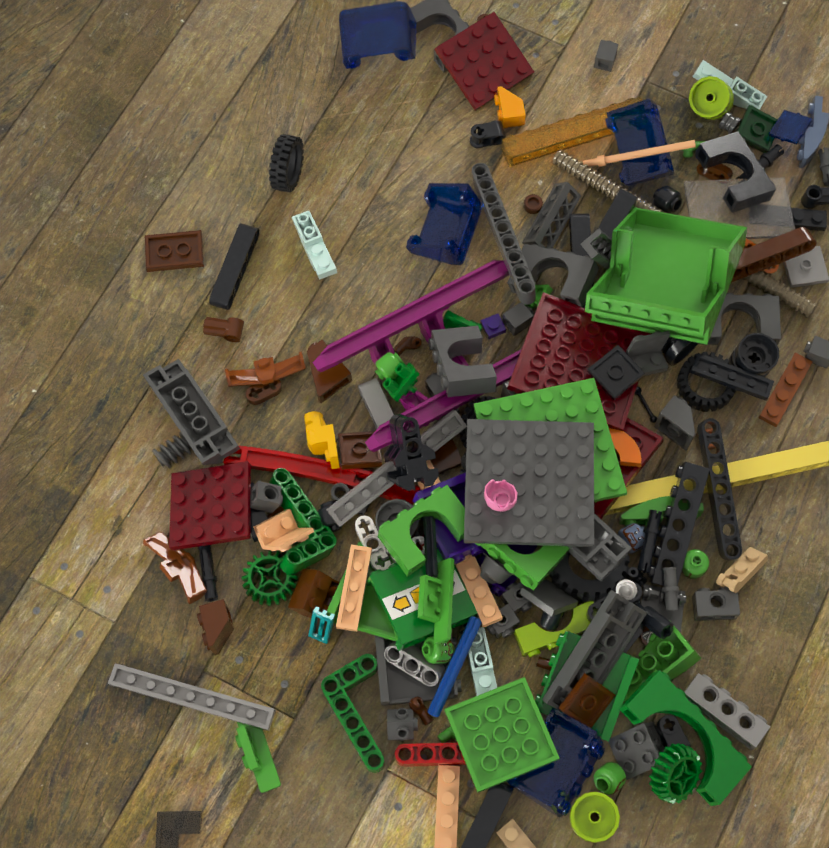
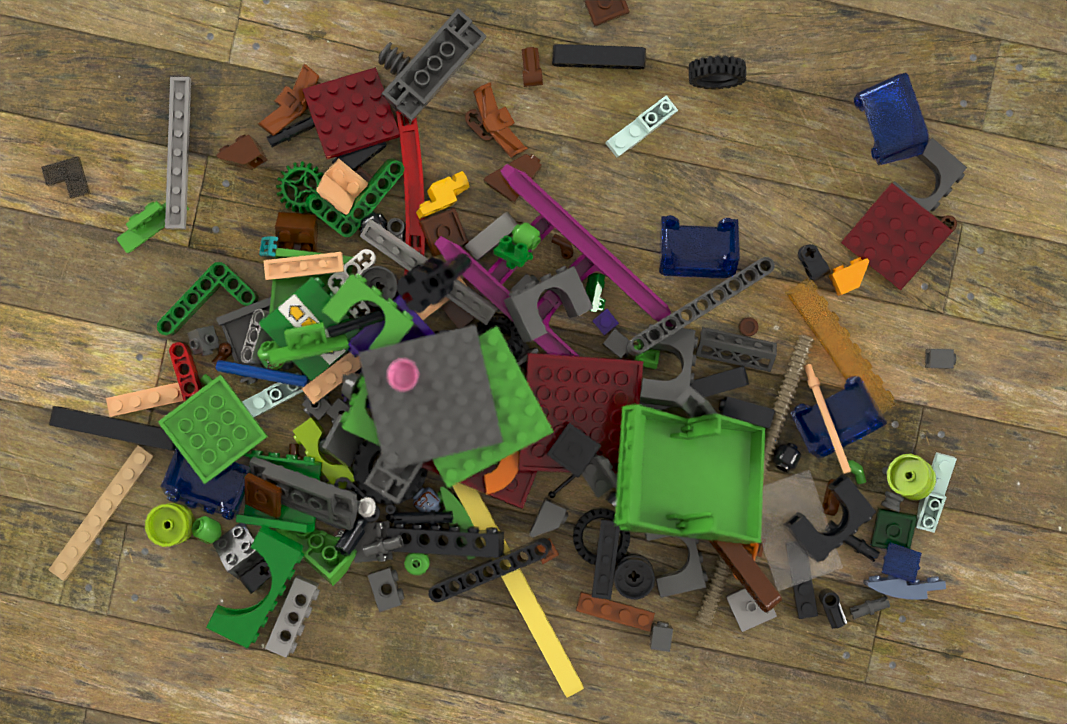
camera: 70 degrees right, 20 degrees up
(265, 497) = (364, 155): dark grey brick -> none
(675, 773) = (222, 585): green gear -> none
(742, 569) = (422, 606): tan plate -> none

